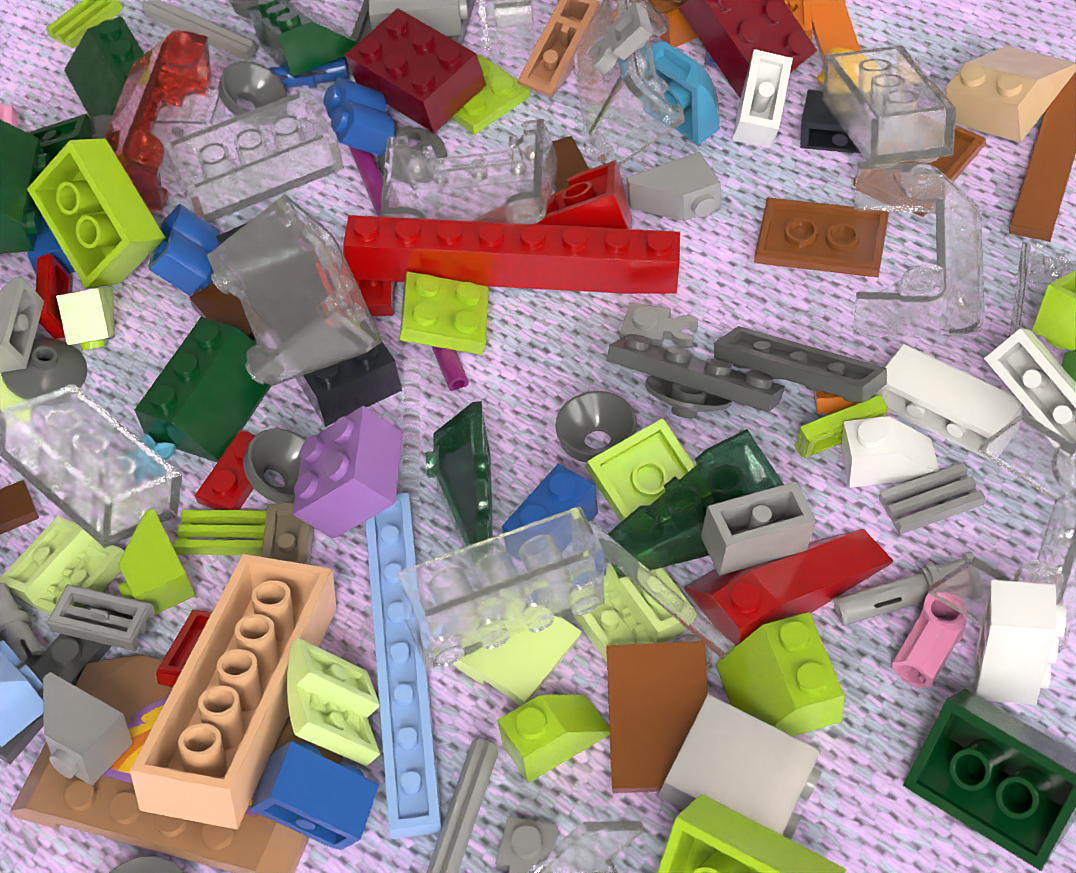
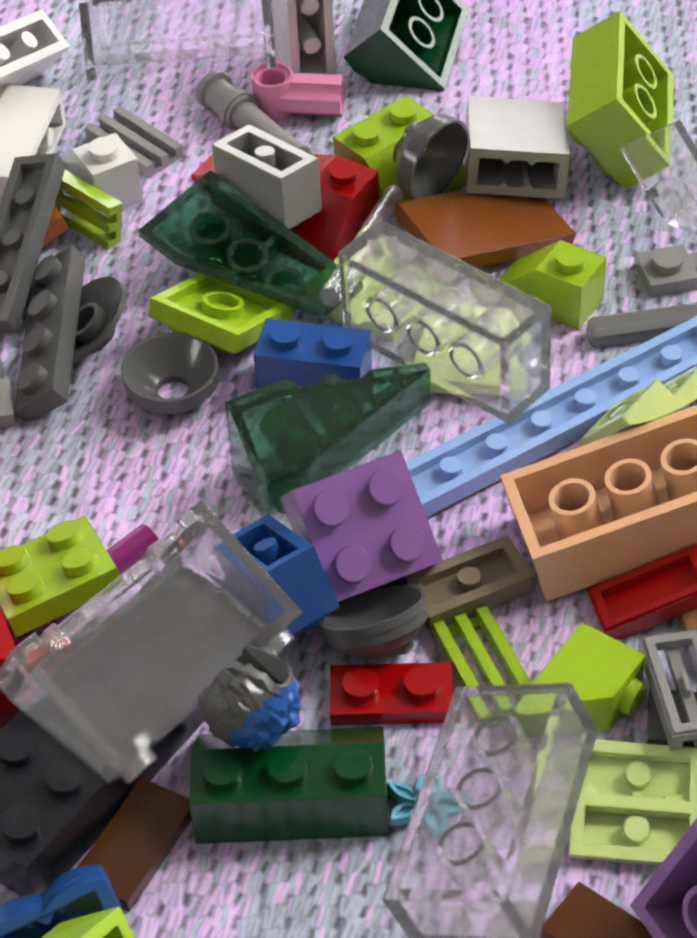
camera: 120 degrees left, 5 degrees down
(222, 342) = (252, 700): none -> dark grey piece
(328, 399) = (293, 567): none -> blue brick
(736, 669) = (430, 155): none -> dark grey piece

